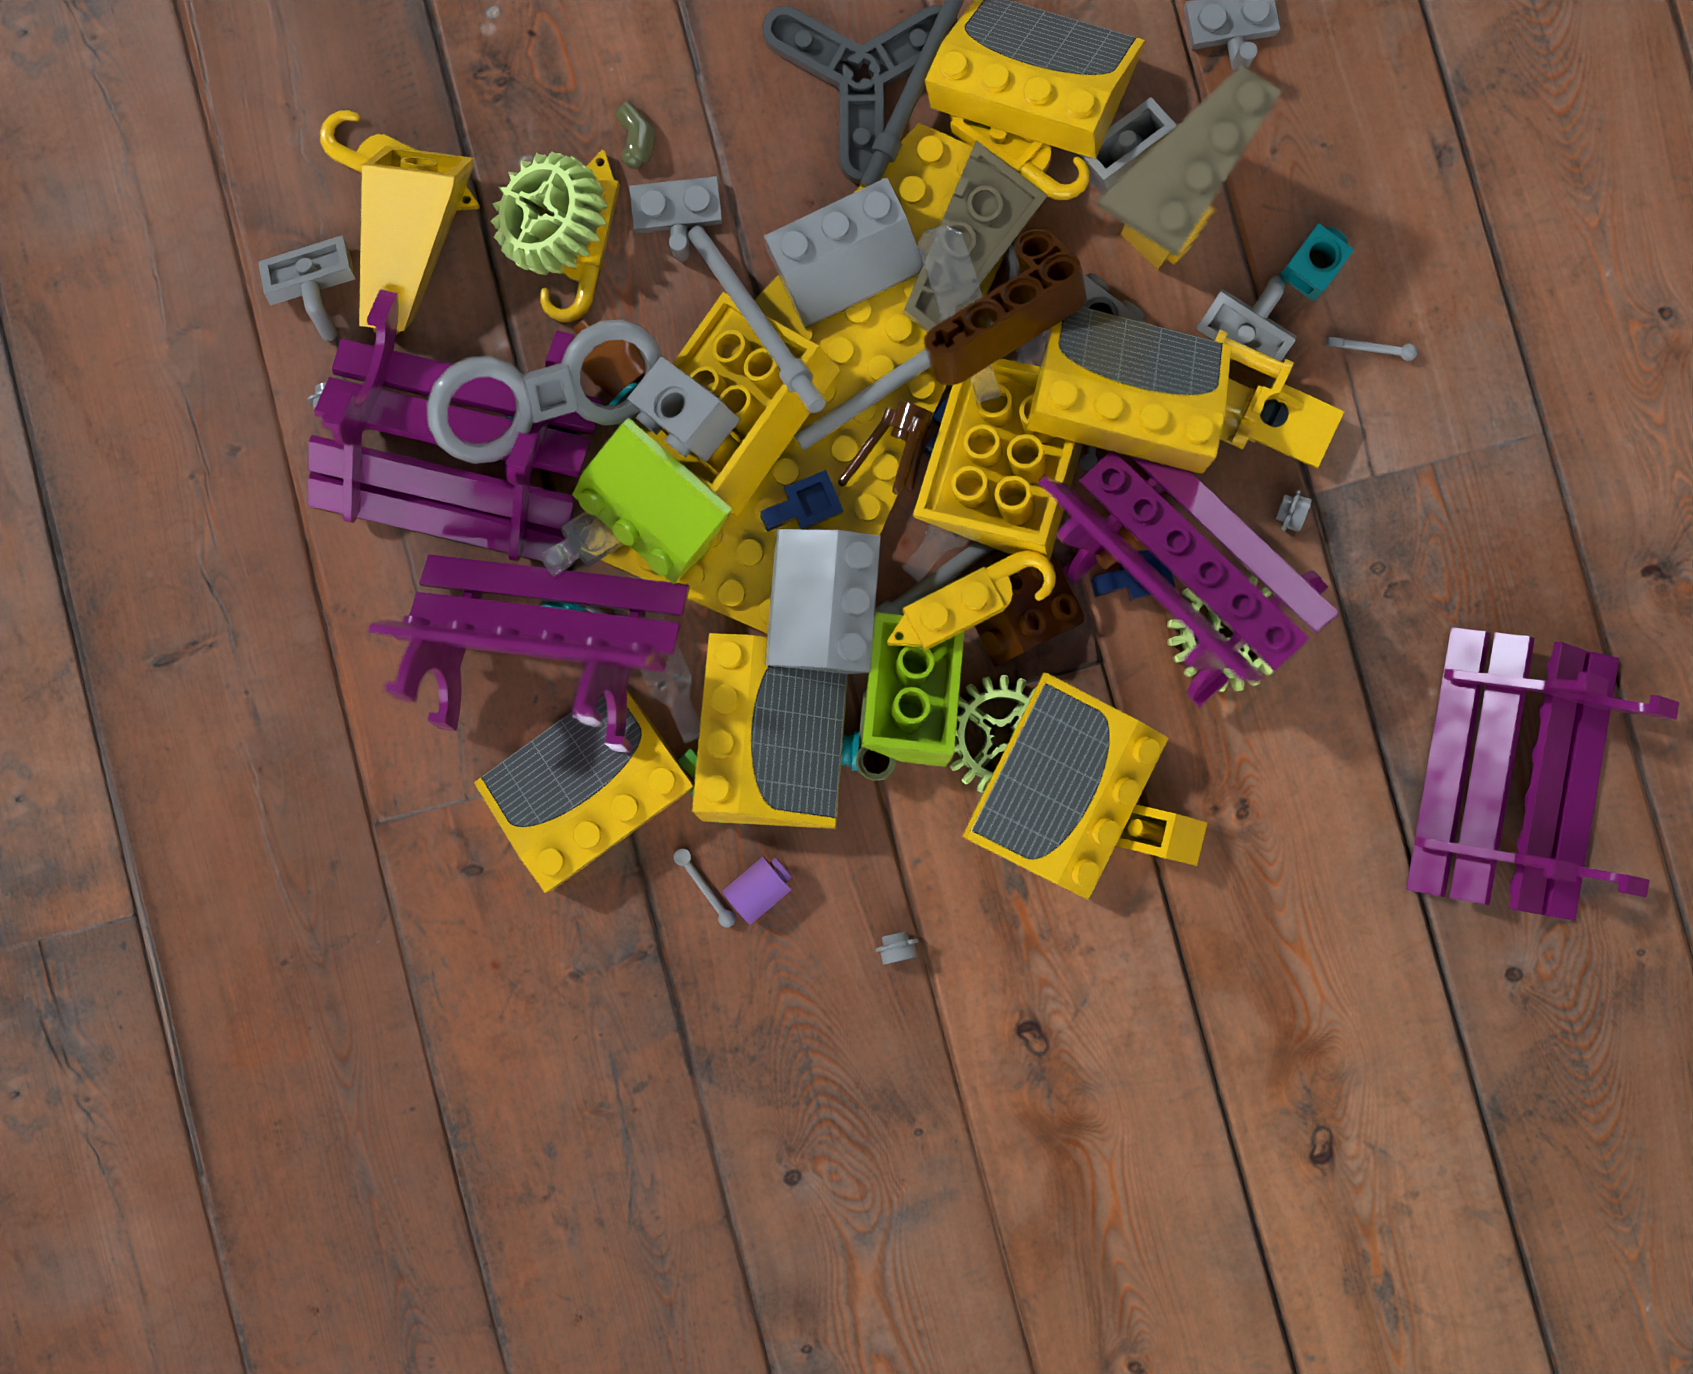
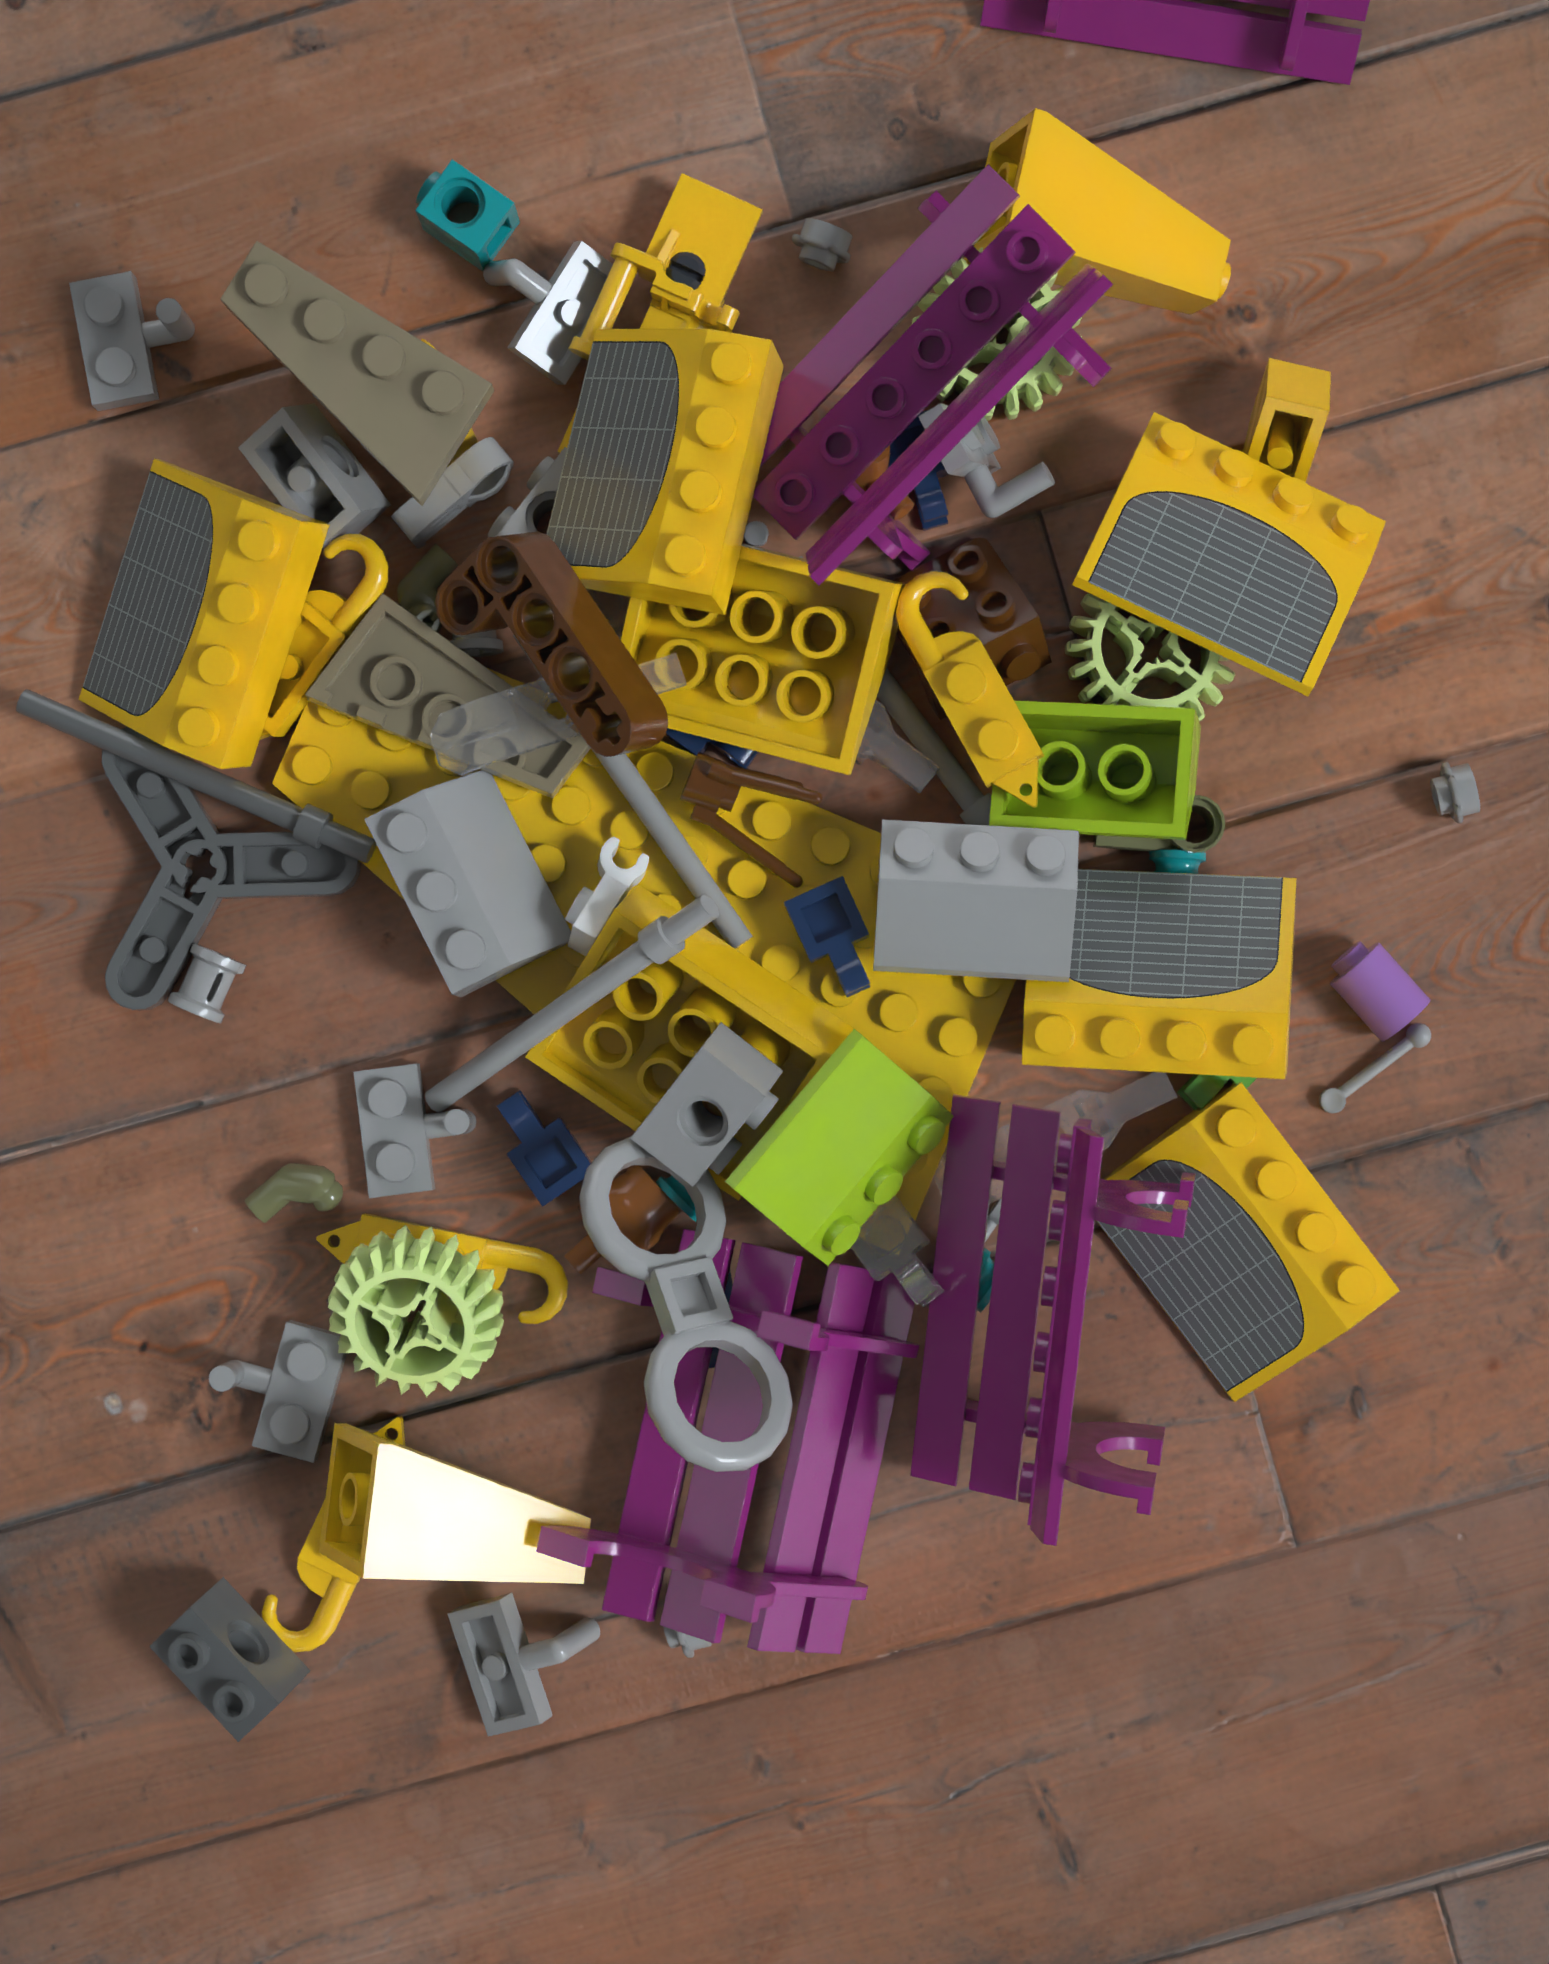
camera: 85 degrees left, 0 degrees up
(315, 85) = (230, 1659): none -> dark grey brick
(499, 135) = (296, 1390): none -> light grey plate
(656, 307) = (548, 1155): none -> dark blue plate
(780, 76) = (206, 983): none -> light grey bush
(826, 337) = (593, 909): none -> white plate
(1058, 226) = (419, 587): none -> olive arm
(1128, 259) = (470, 478): none -> light grey piece
(1140, 611) = (976, 462): none -> light grey plate
(1305, 705) = (1109, 217): none -> yellow slope
(1407, 352) = (591, 89): light grey hinge -> none

